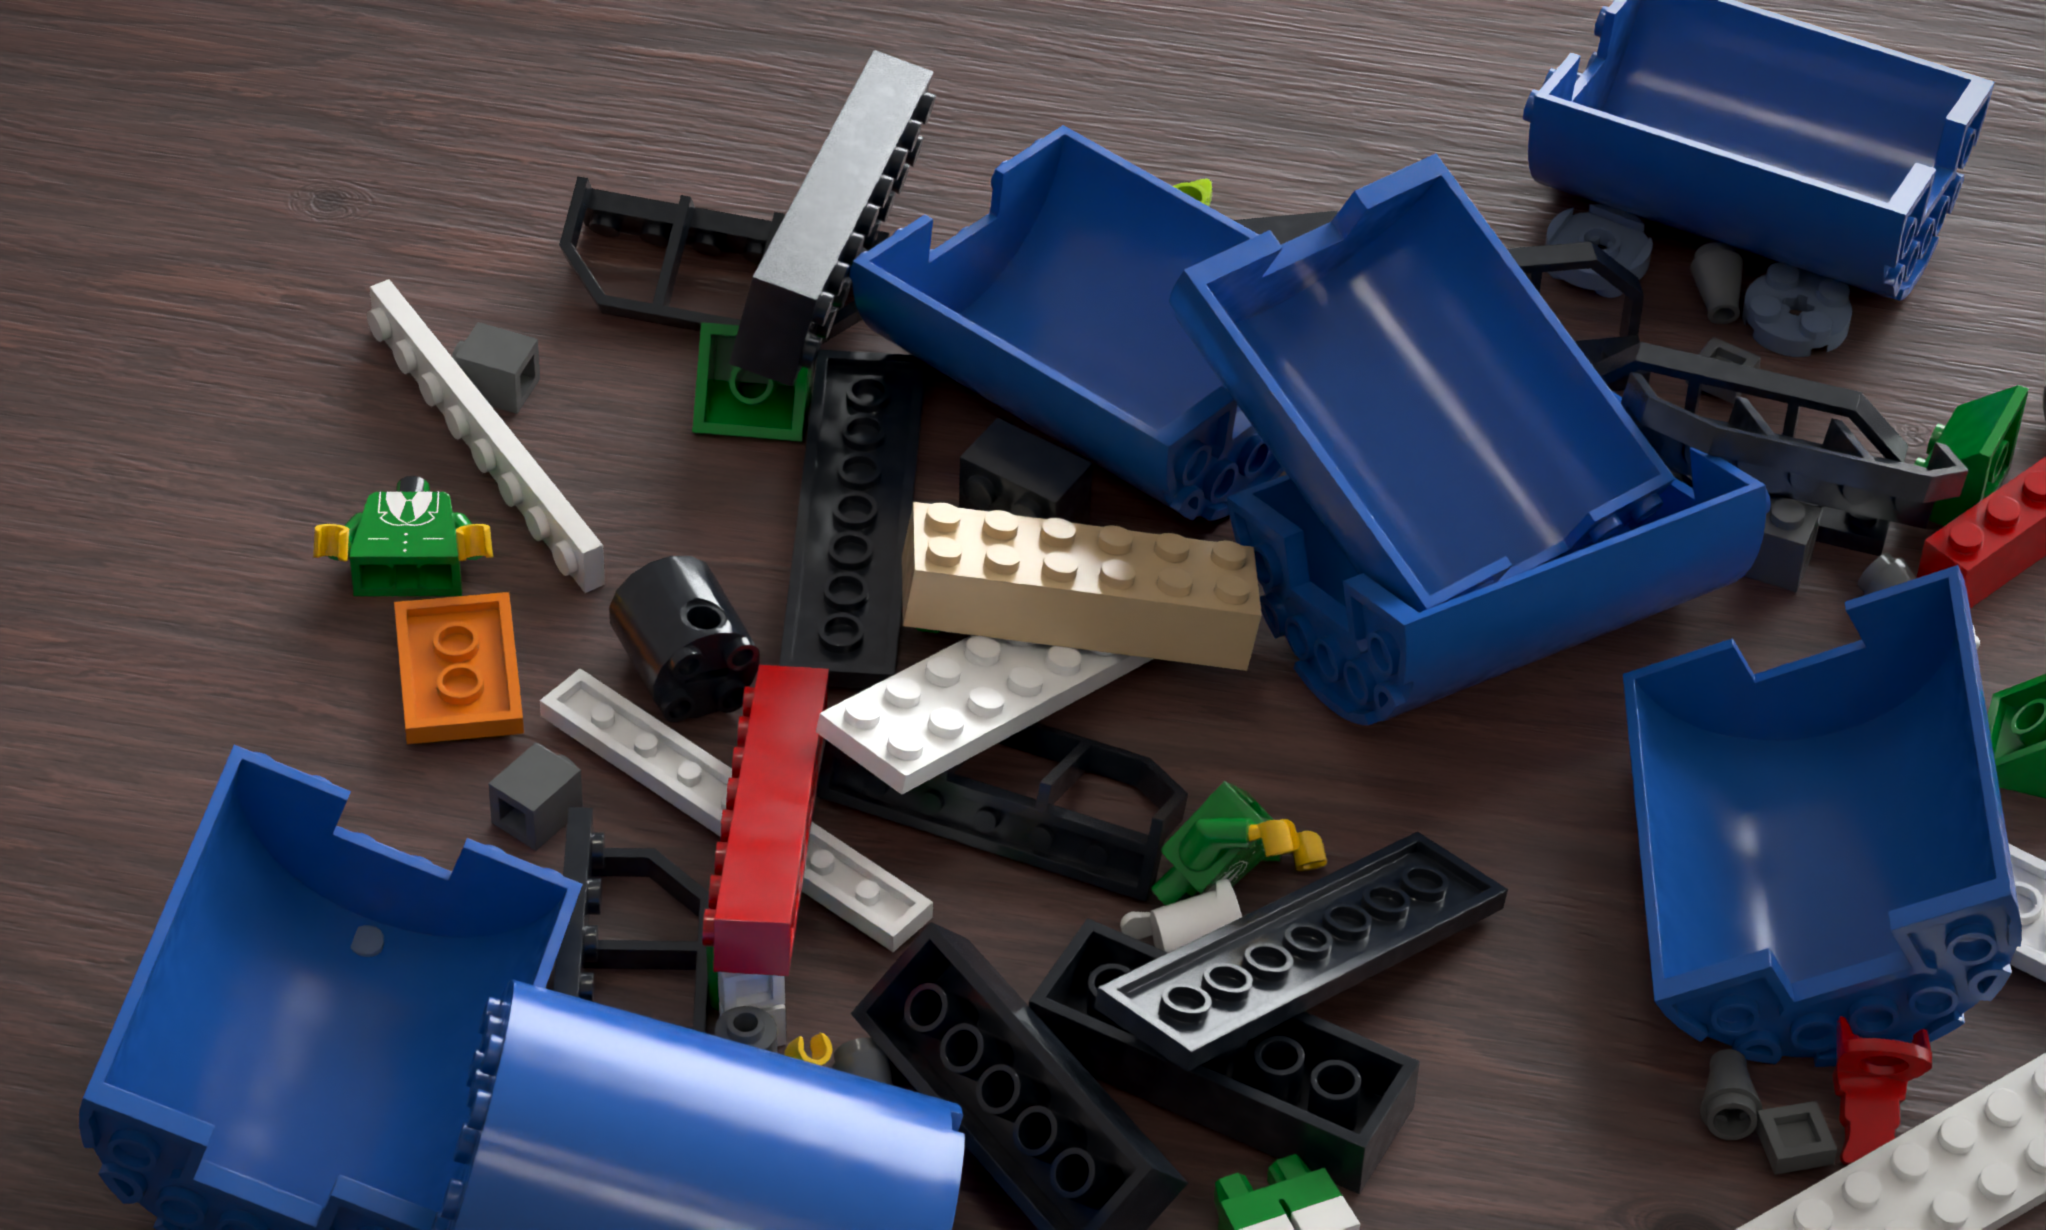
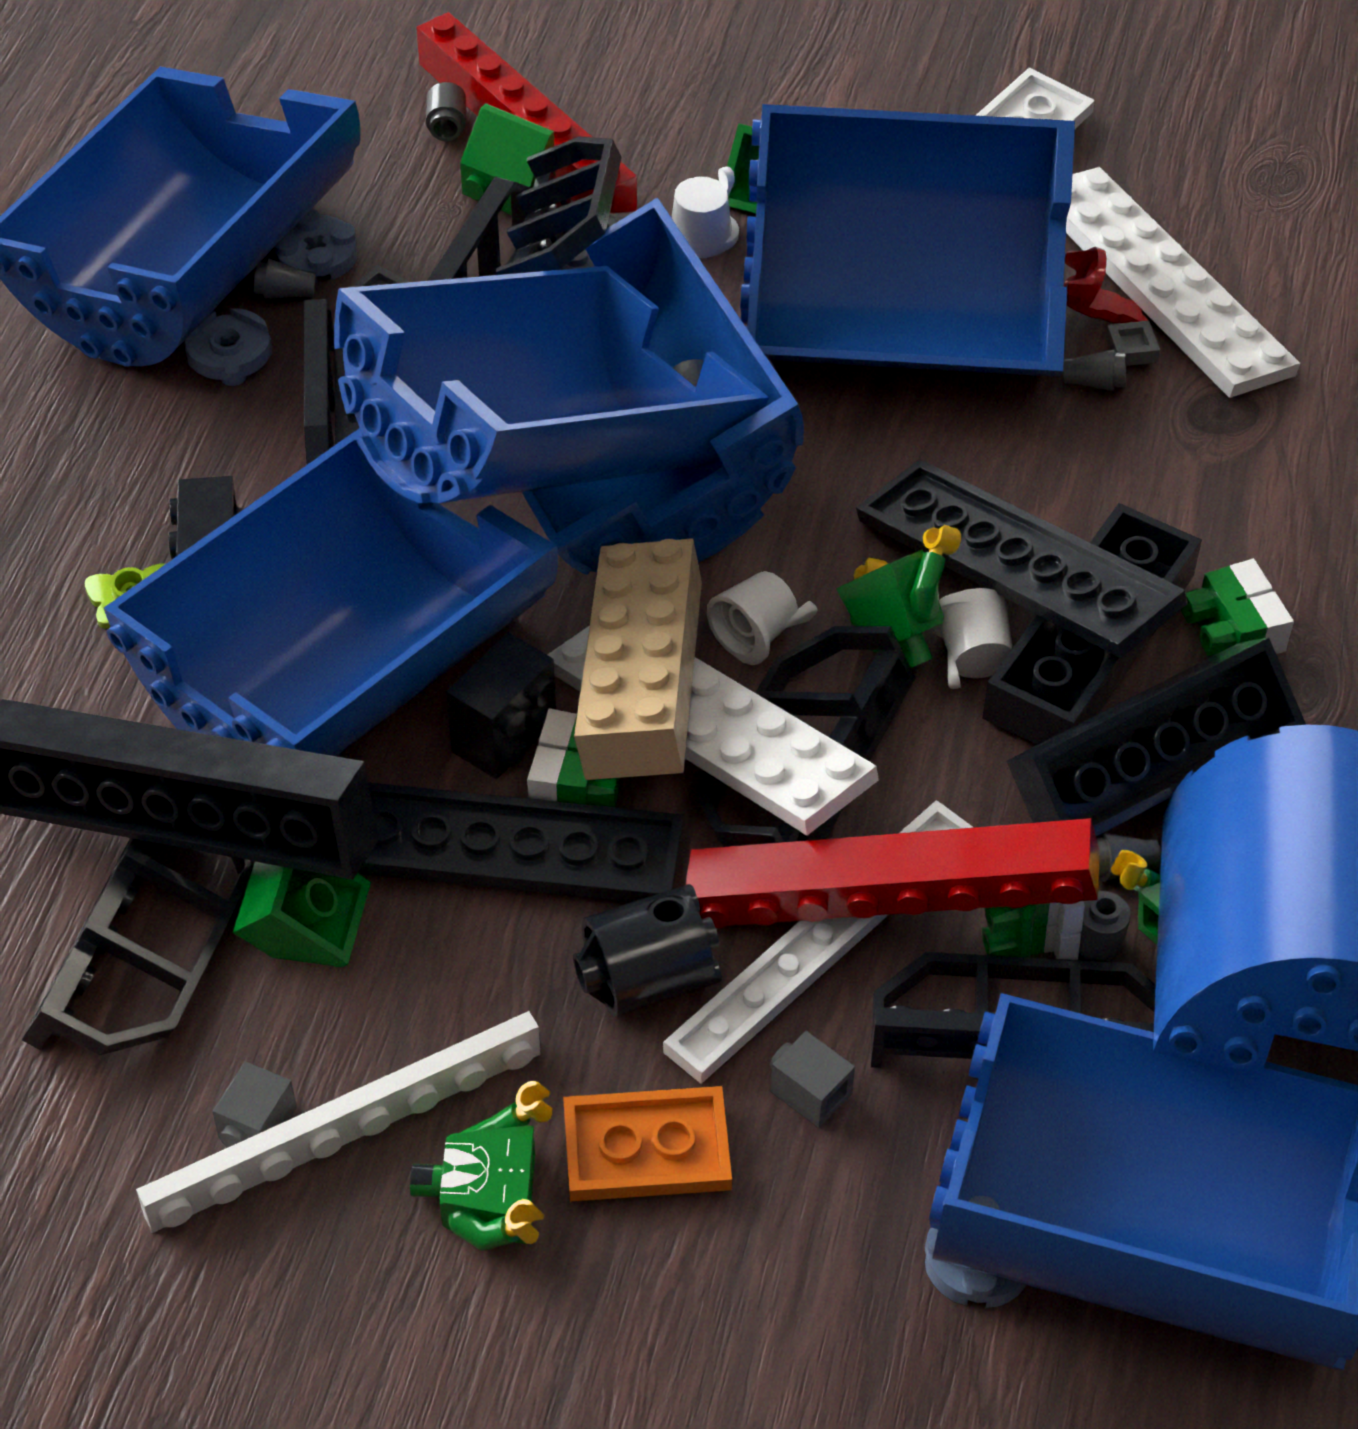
camera: 85 degrees left, 5 degrees up
(1205, 726) = (754, 614): none -> white hat

